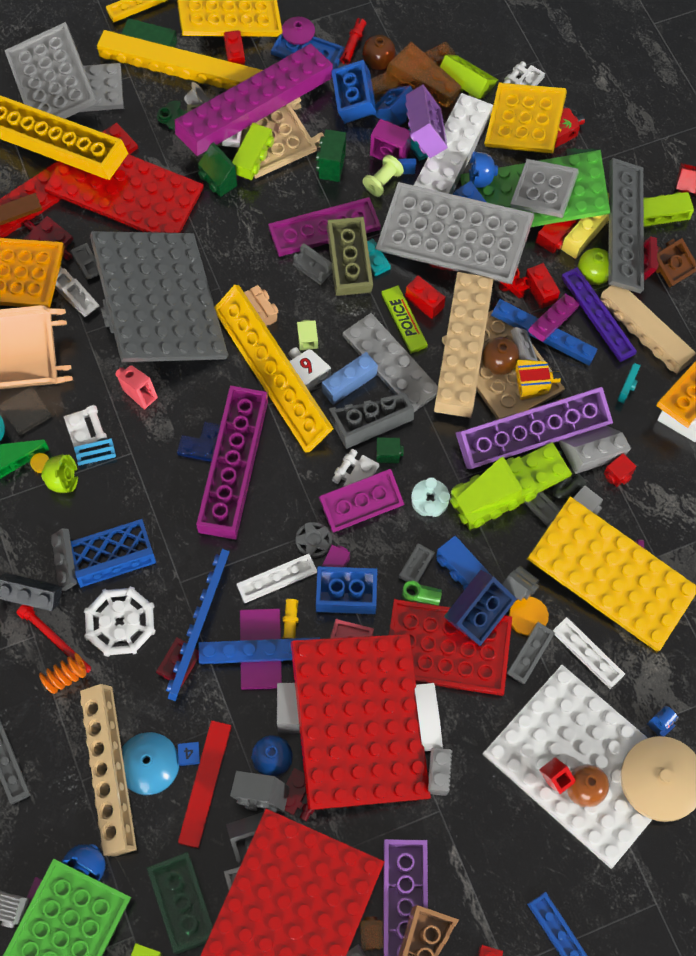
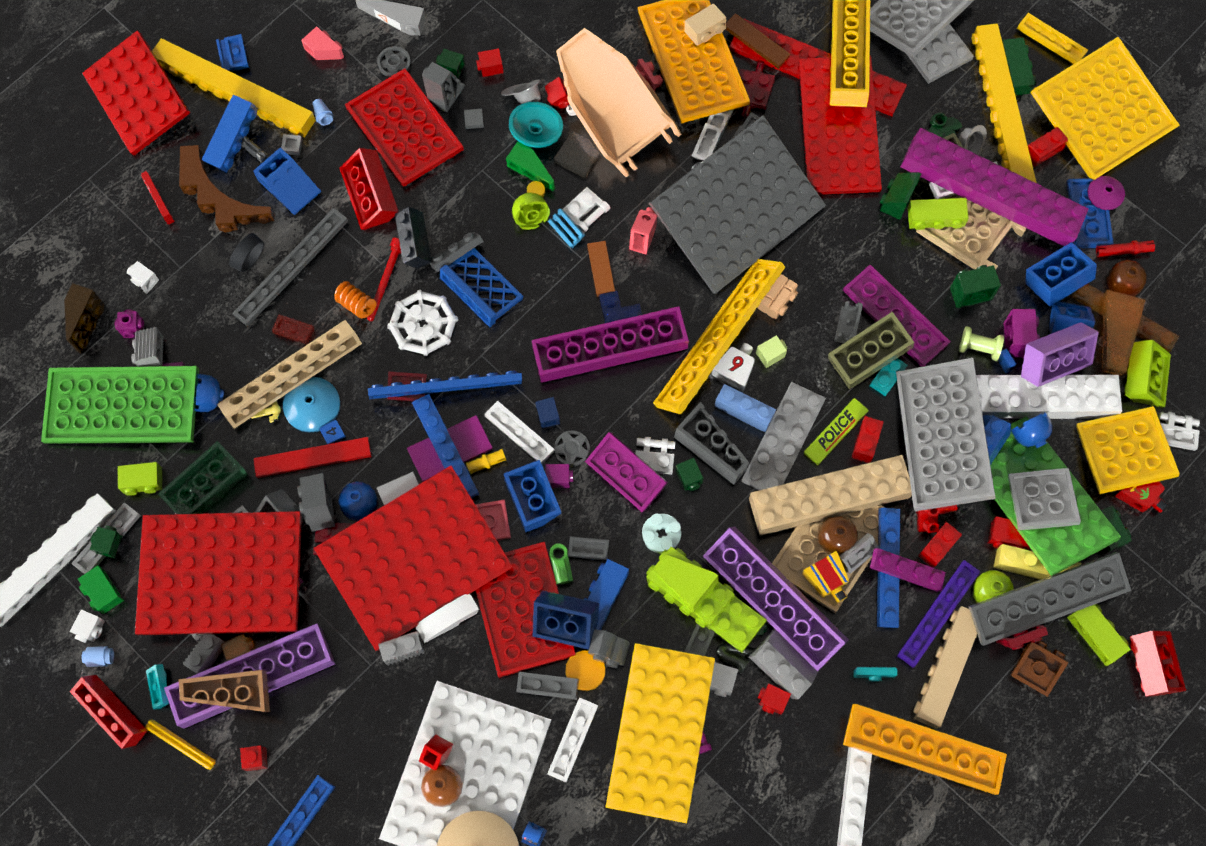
camera: 70 degrees right, 5 degrees up
(60, 749) = (293, 329): none -> clear red plate
(135, 801) = (275, 410): none -> light yellow piece
(150, 440) = (600, 267): none -> dark orange tile
(271, 543) = (547, 412): none -> dark blue panel

